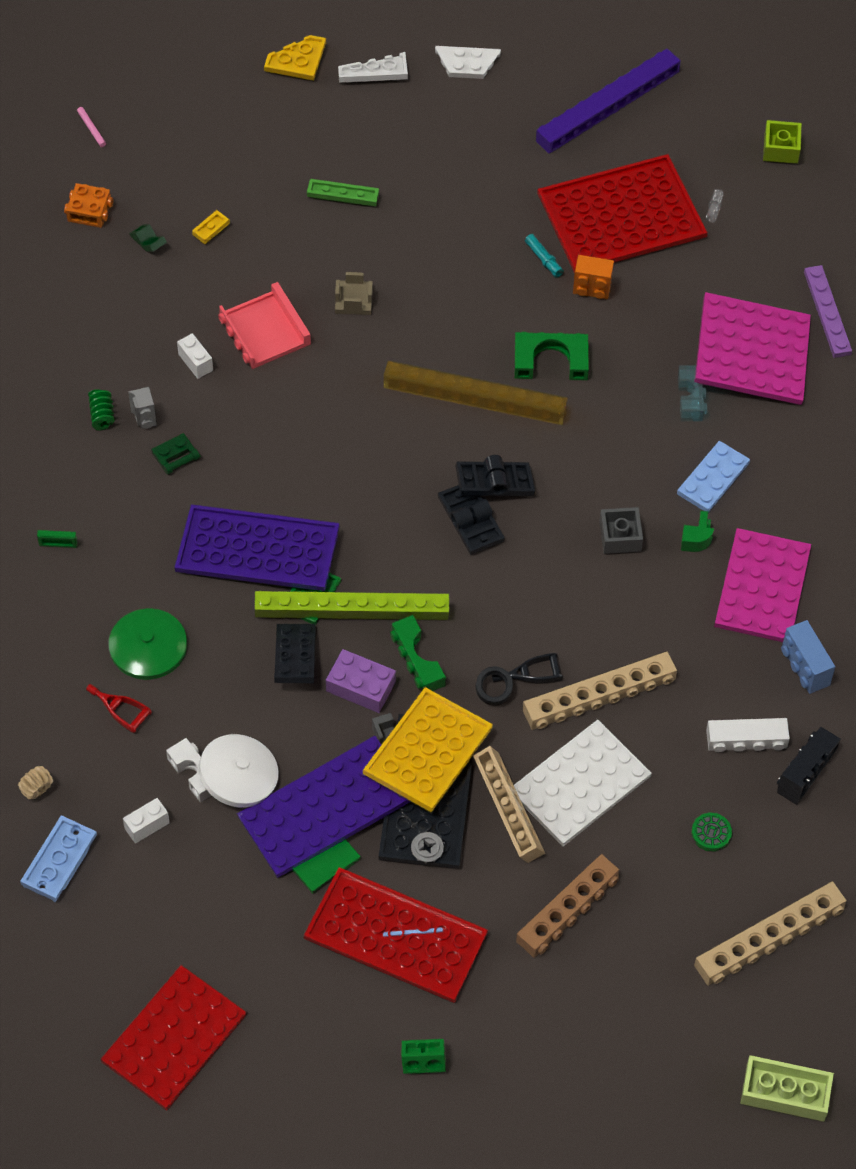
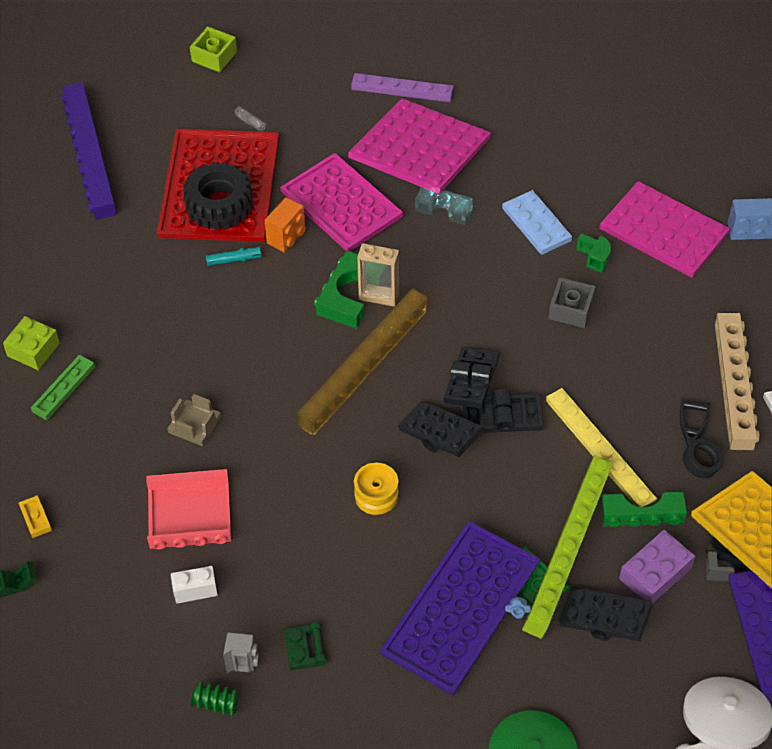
camera: 65 degrees left, 5 degrees down
(268, 583) = (518, 607): none -> medium blue plate
(342, 447) = (376, 488): none -> yellow wheel
(374, 151) = (31, 343): none -> lime brick
(427, 473) = (440, 429): none -> black plate
(471, 605) = (597, 445): none -> light yellow plate
(562, 362) = (378, 274): none -> window
(598, 195) = (215, 179): none -> black tyre
(651, 313) = (342, 202): none -> dark pink plate

